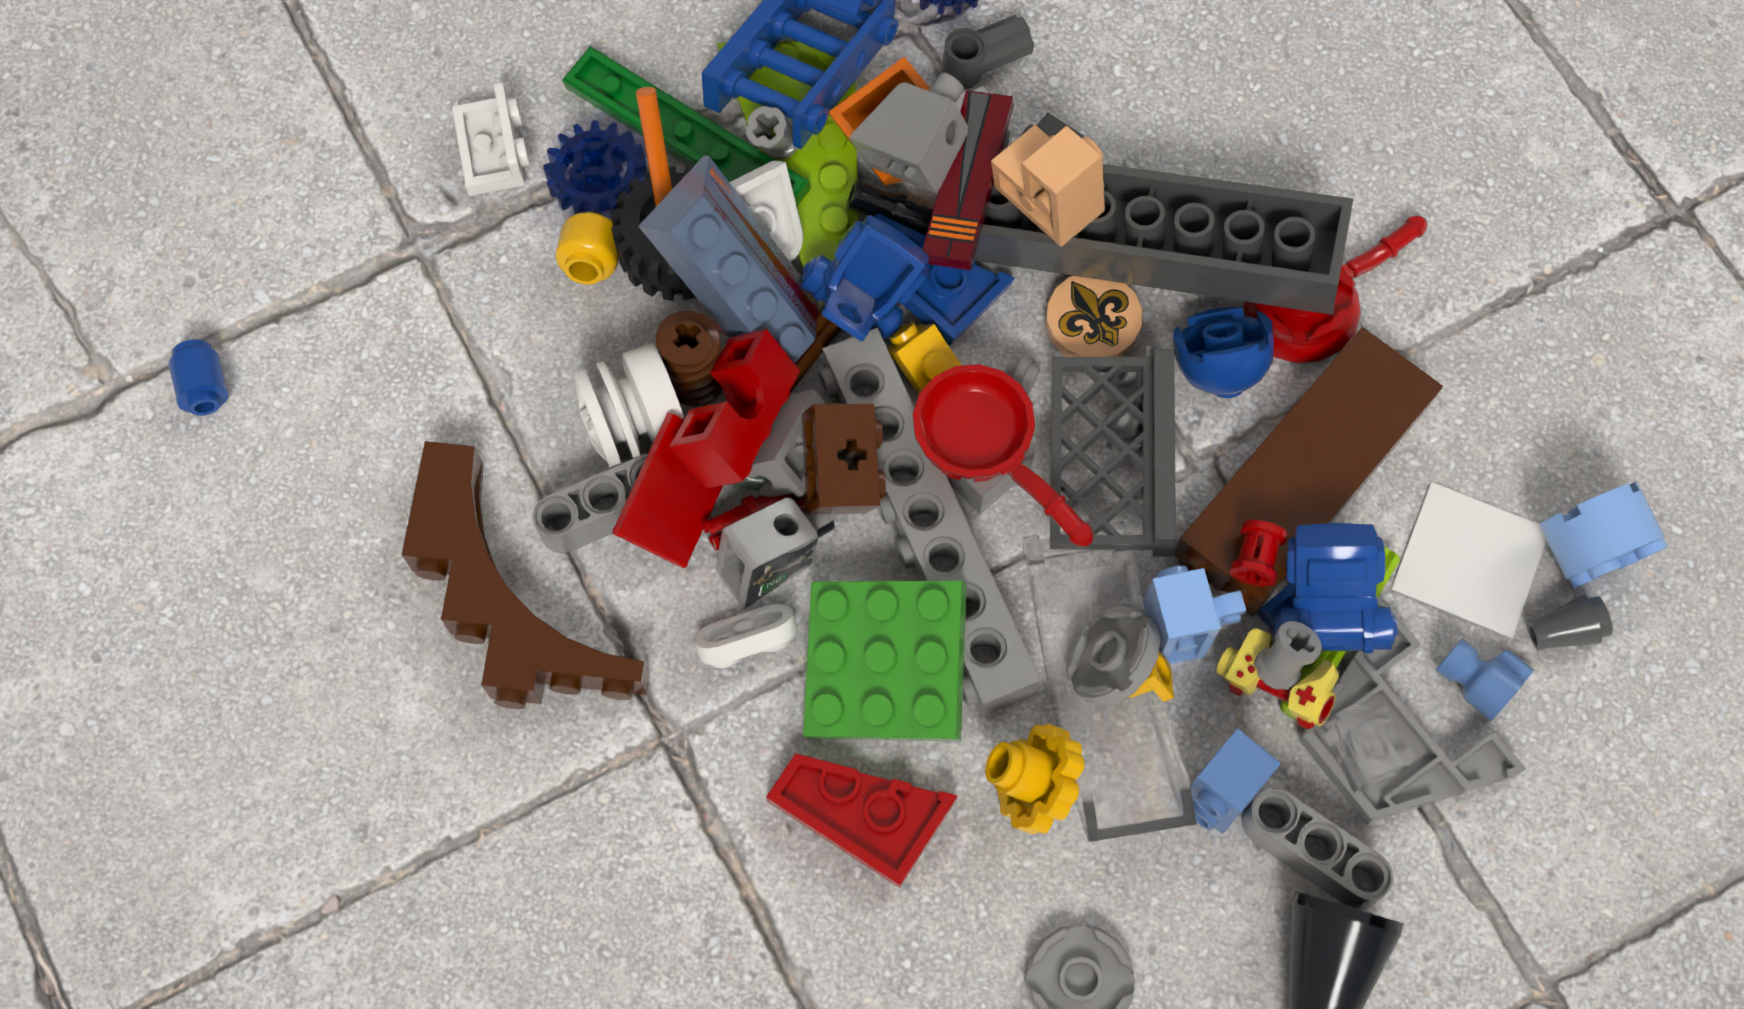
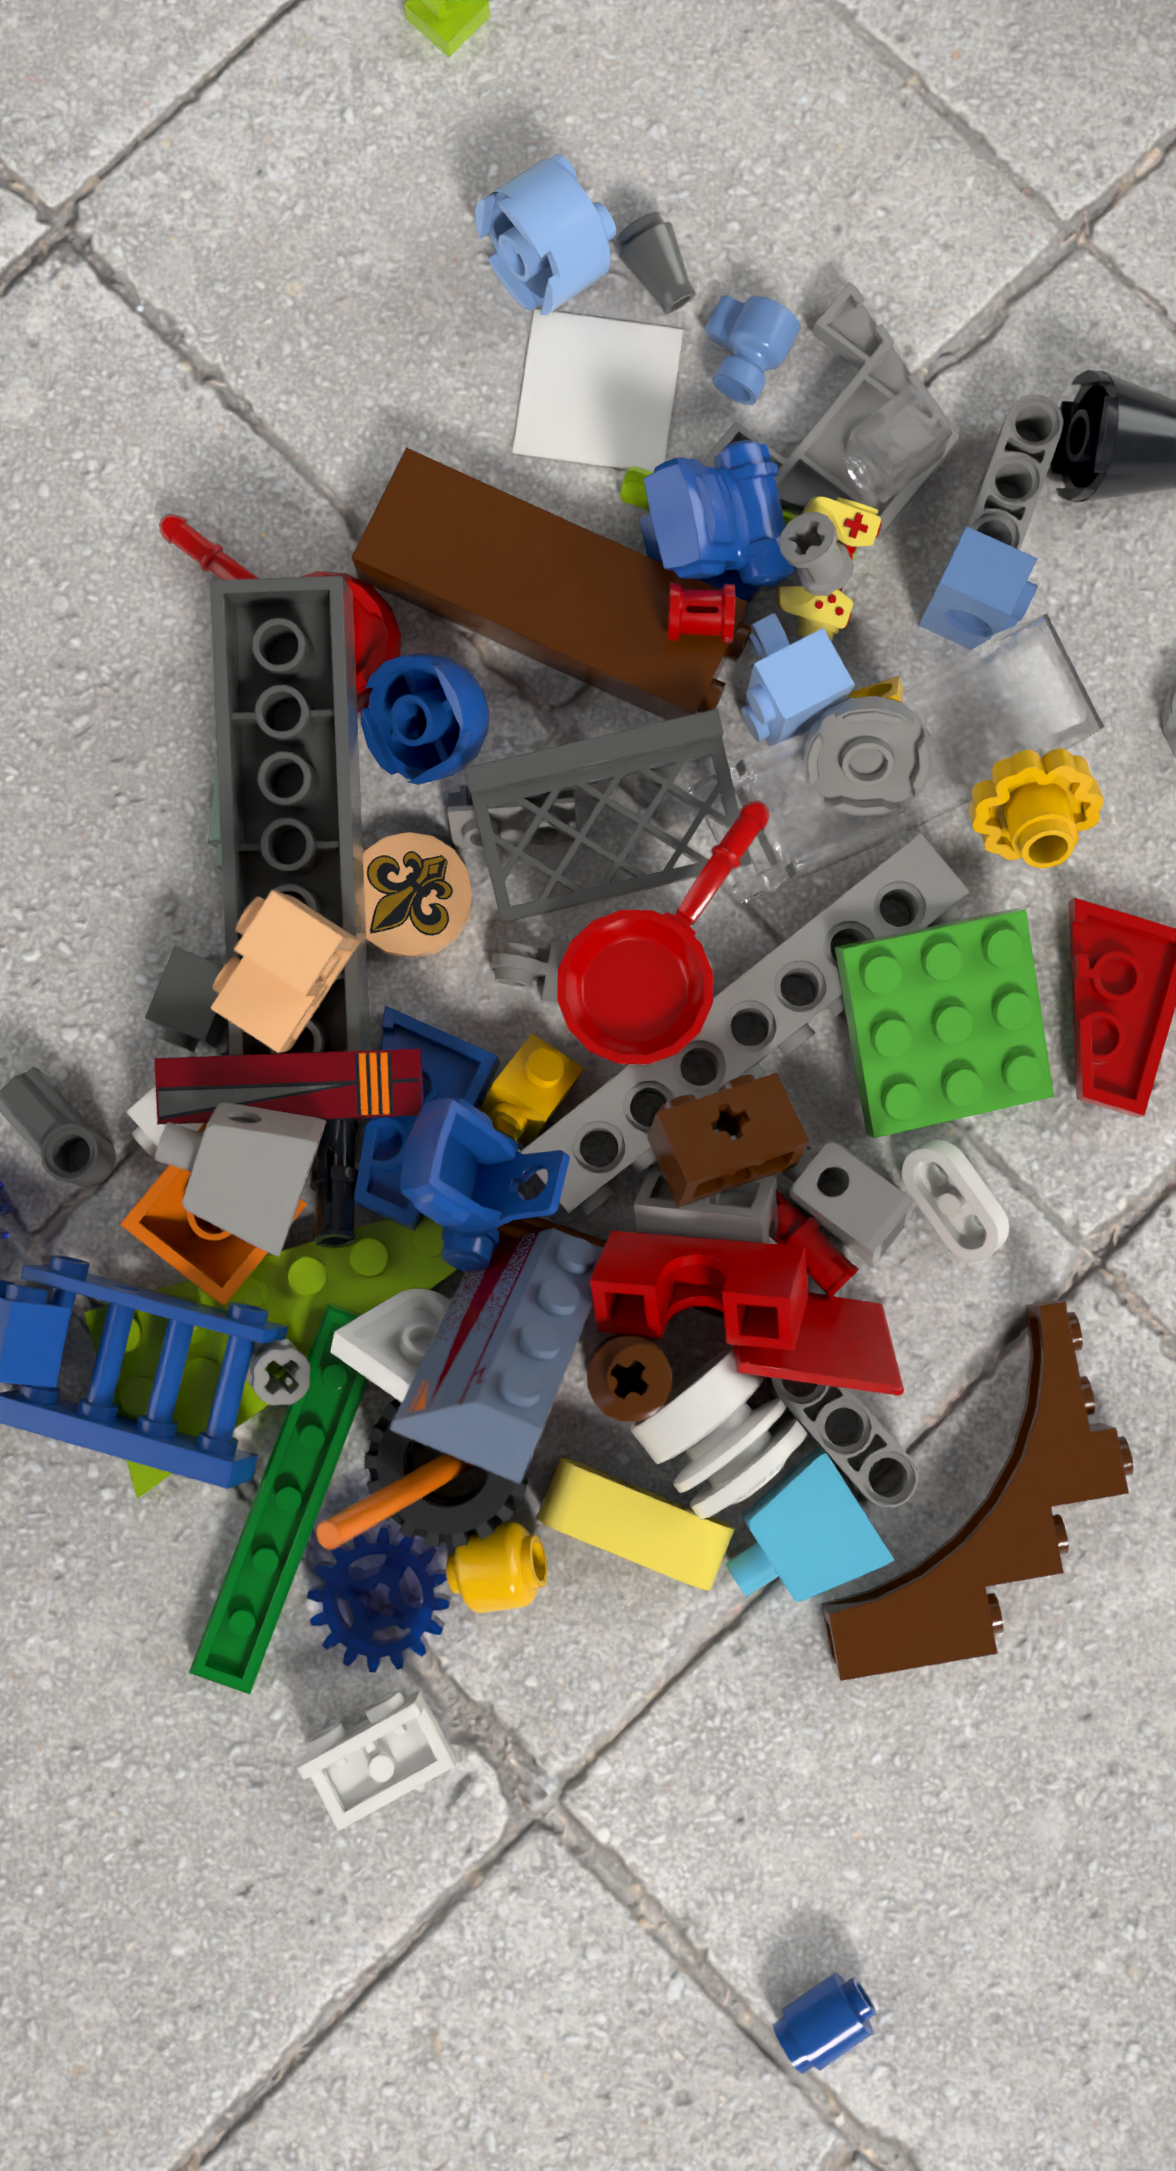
camera: 105 degrees left, 15 degrees up
(532, 457) = (808, 1534): none -> medium azure torso
(593, 334) = (635, 1524): none -> light yellow beam

